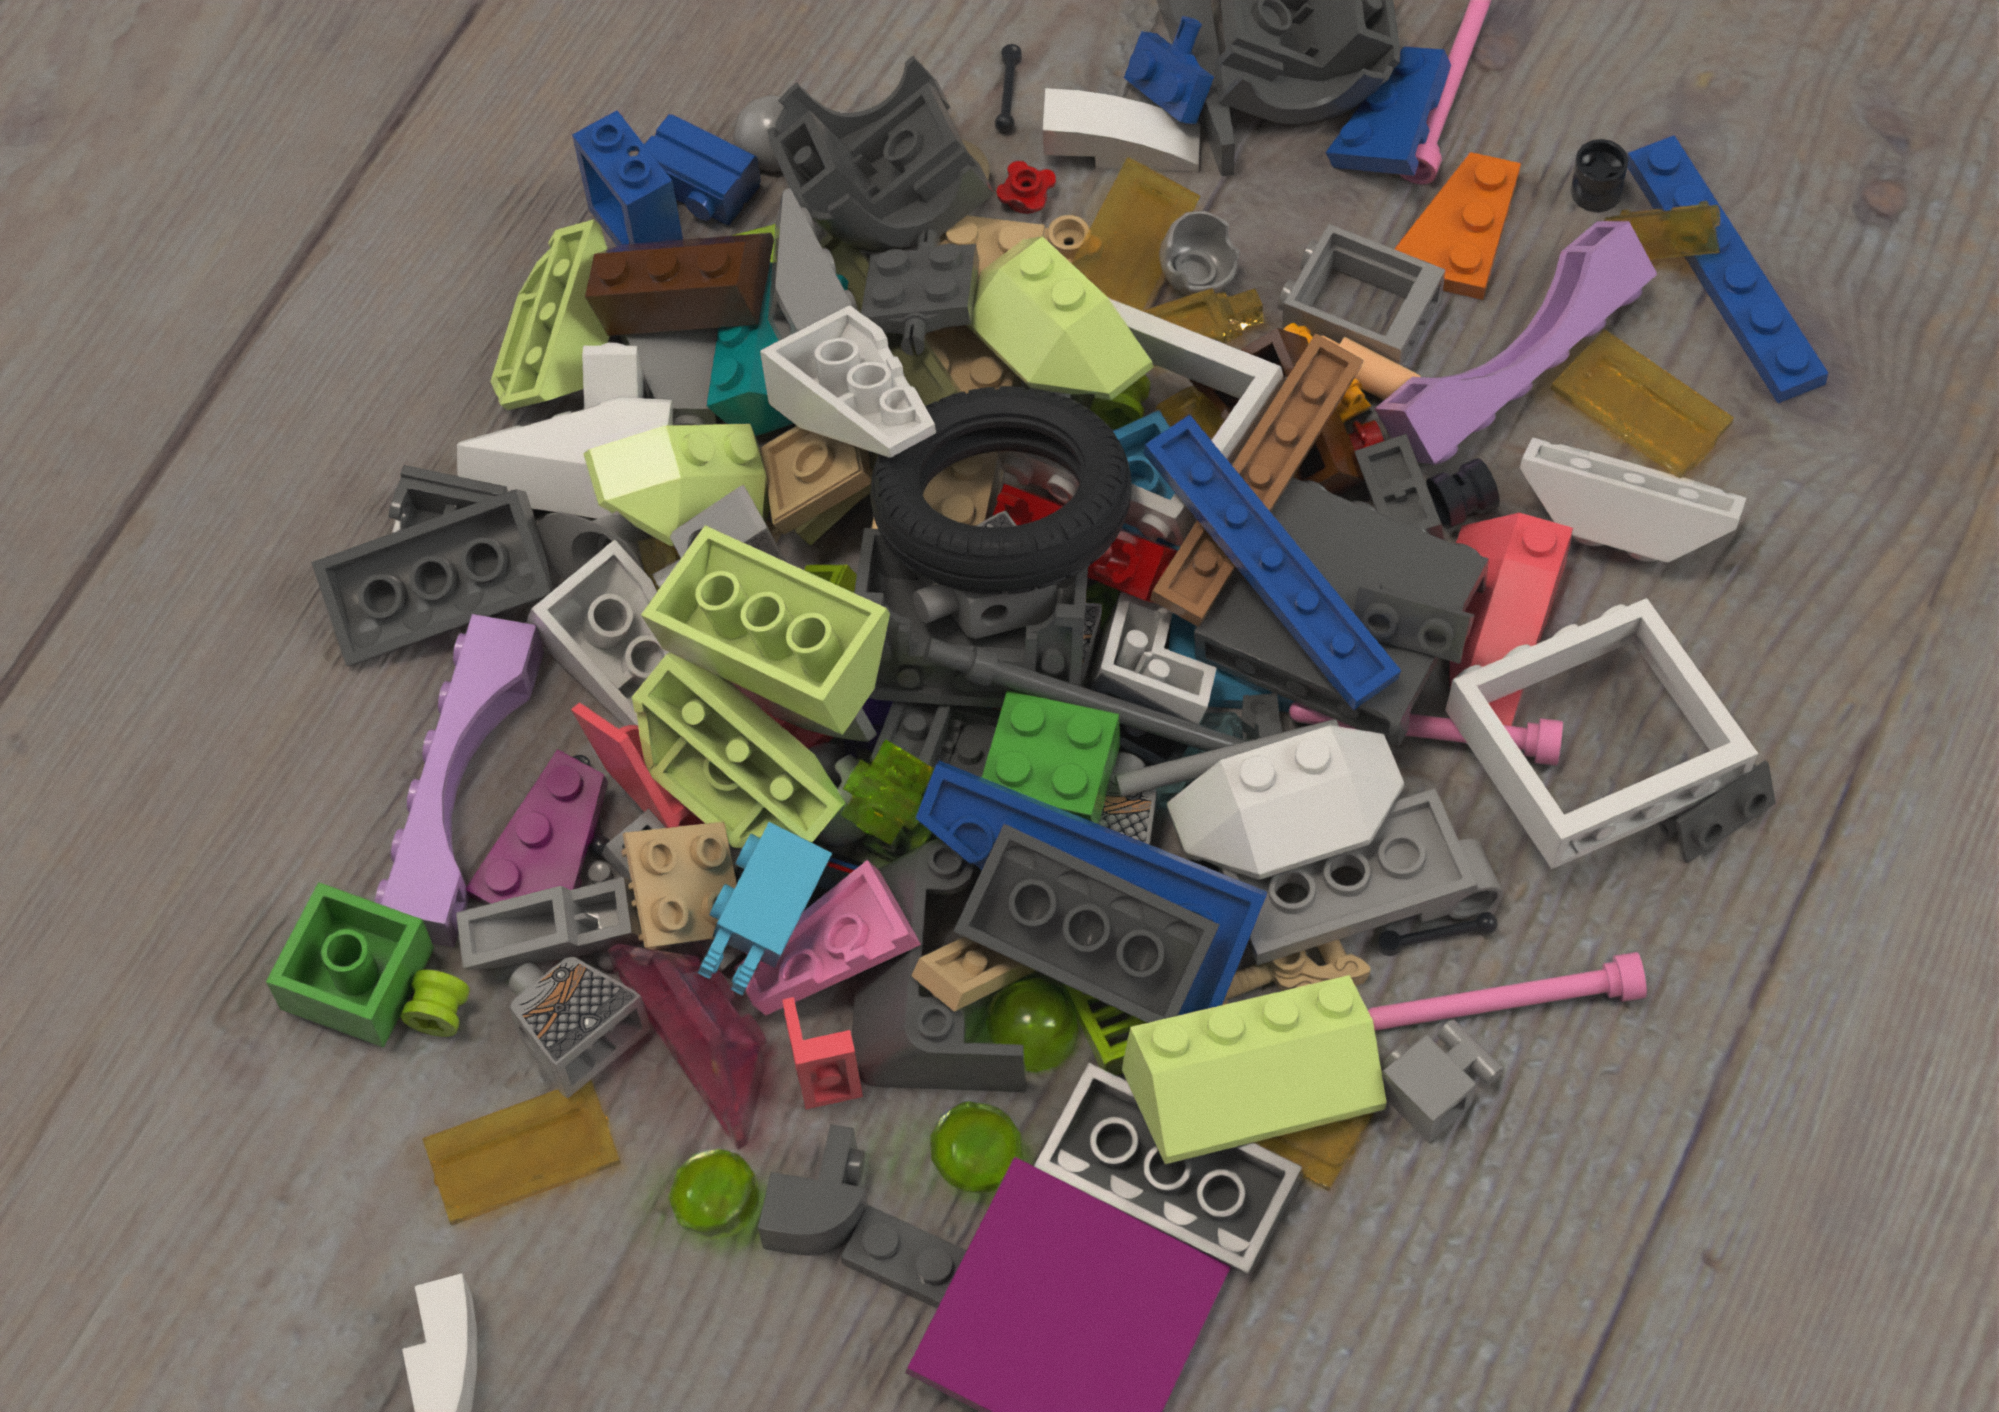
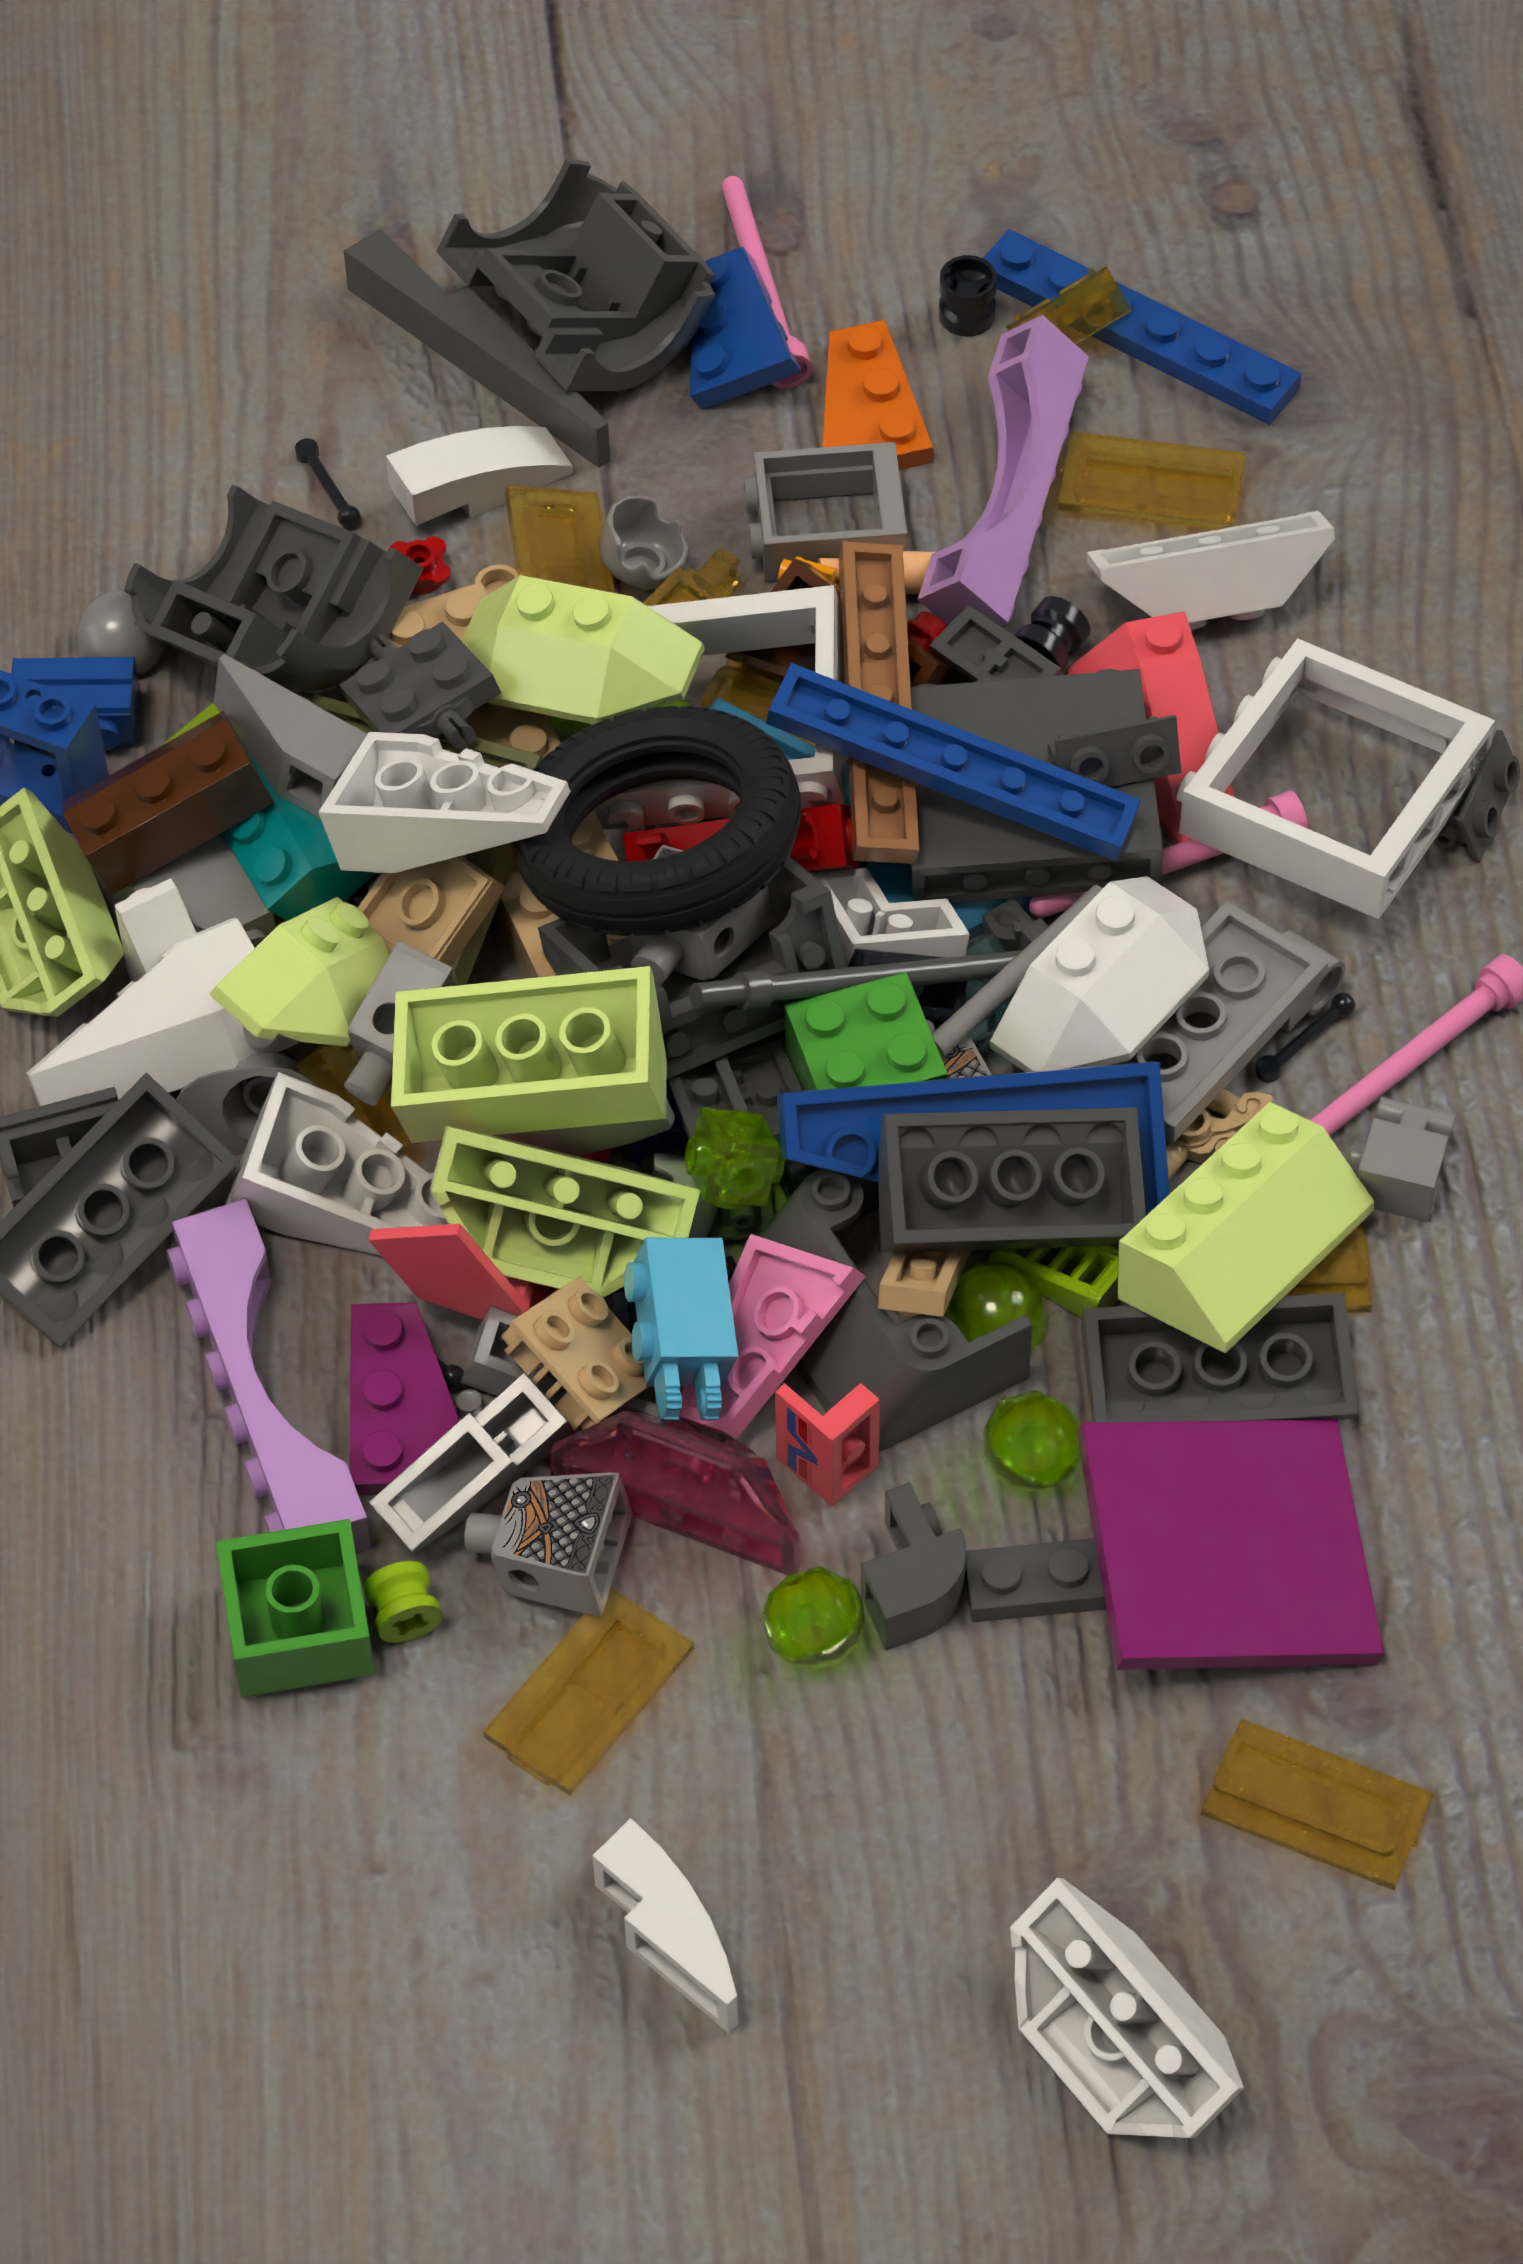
camera: 35 degrees left, 5 degrees down
(1171, 72) = (493, 387): blue plate -> none

